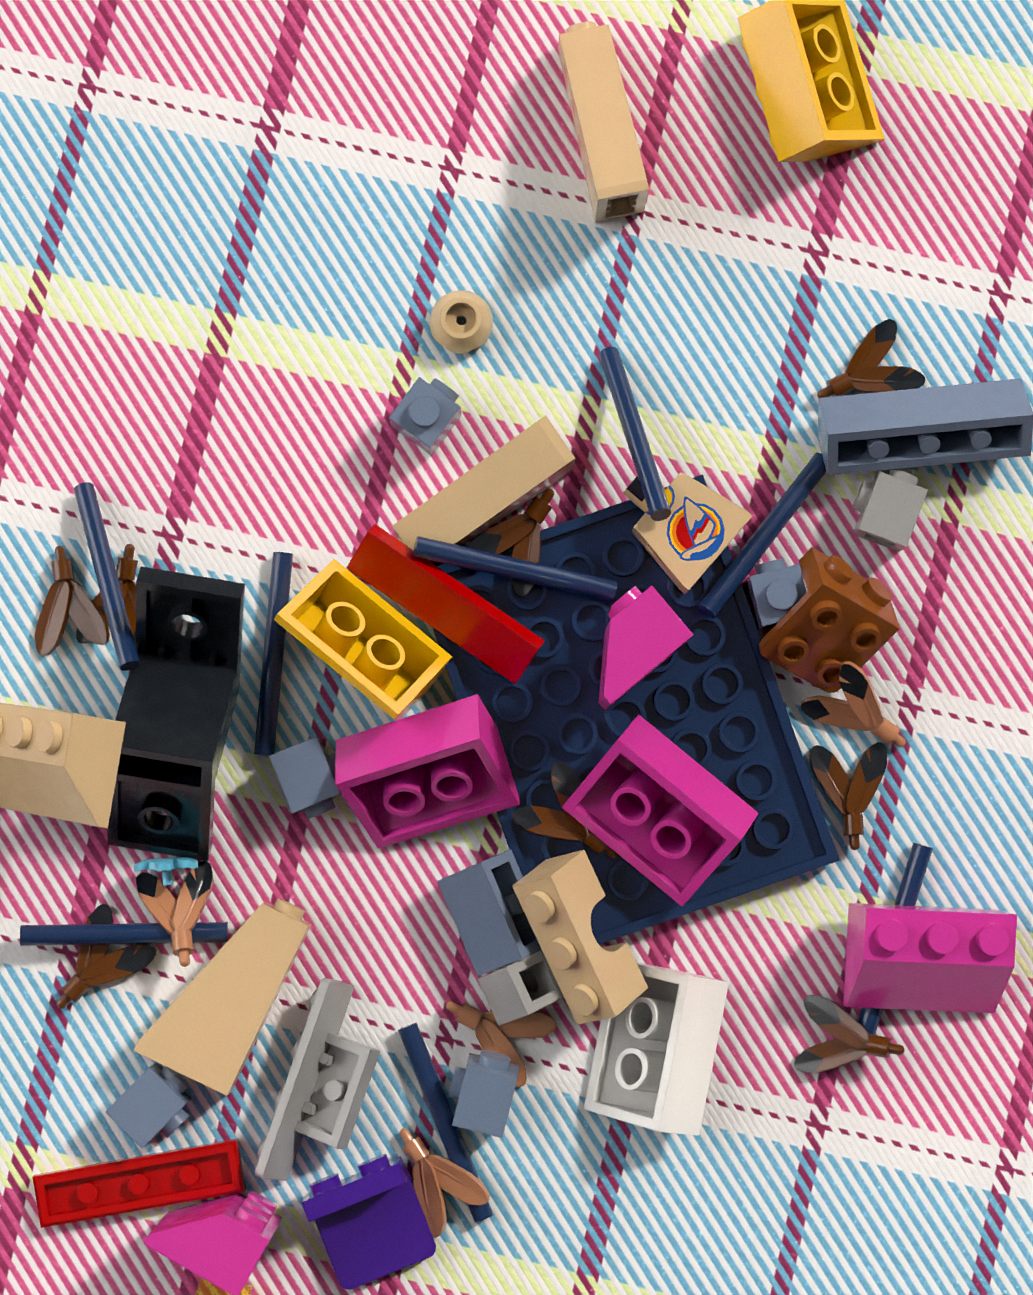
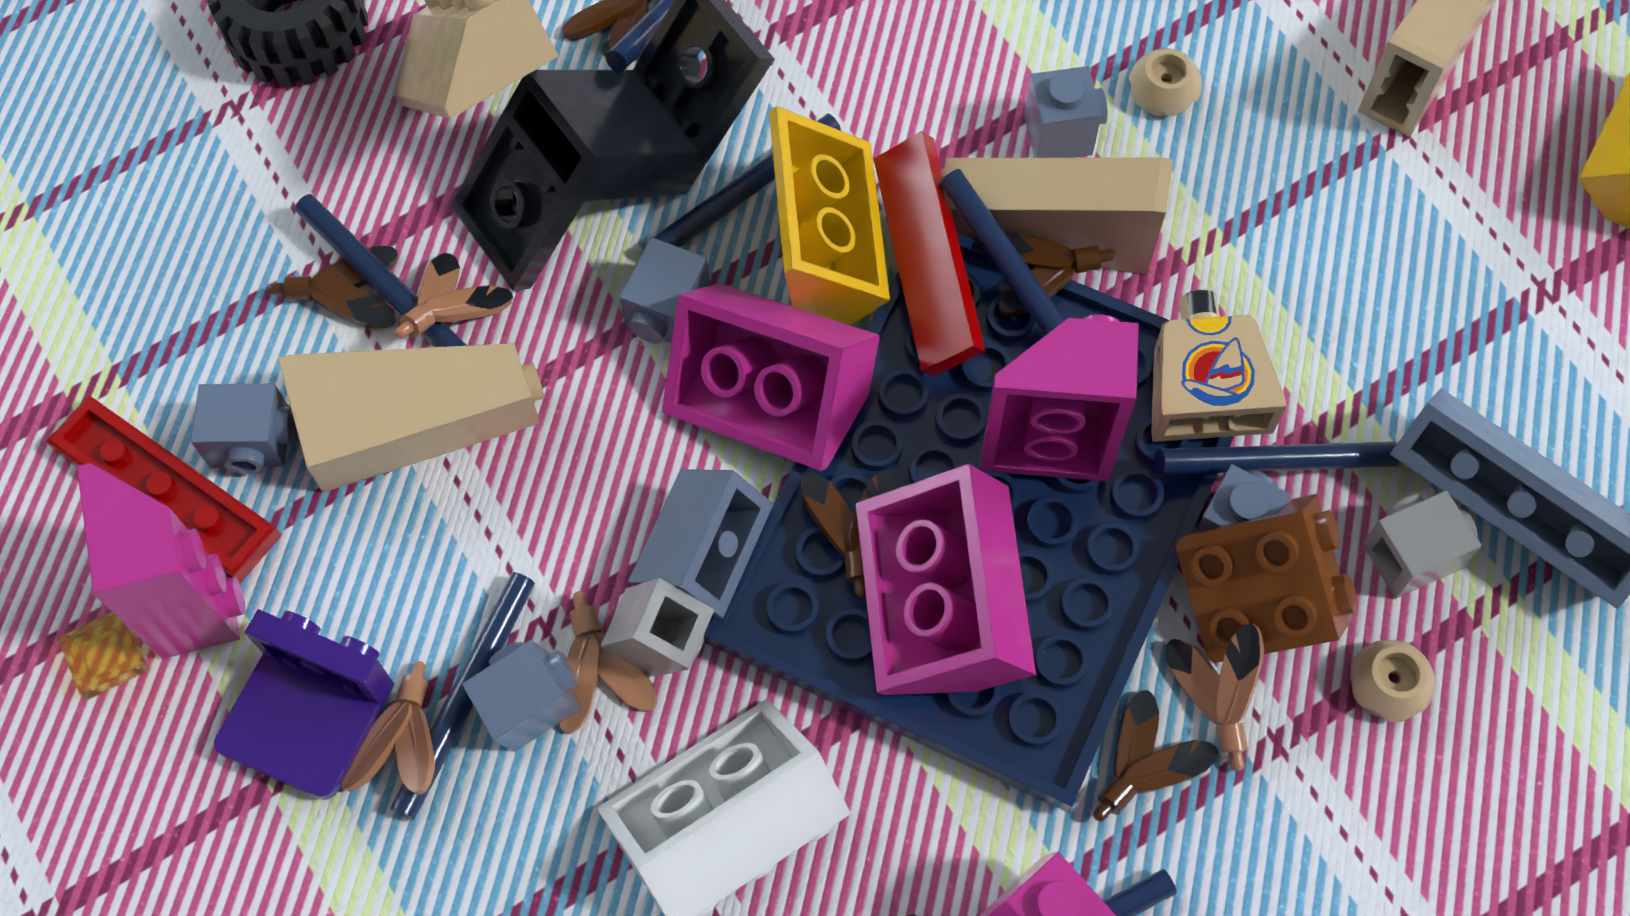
camera: 50 degrees right, 20 degrees down
(166, 865) = (474, 255): medium azure plant -> none
(322, 1086) = (393, 545): light grey bracket -> none
(559, 908) = (726, 664): tan arch -> none
(635, 434) = (1235, 266): dark blue bar -> none
(863, 370) = (1519, 409): reddish brown piece -> none
(929, 621) = (1378, 694): none -> tan plate

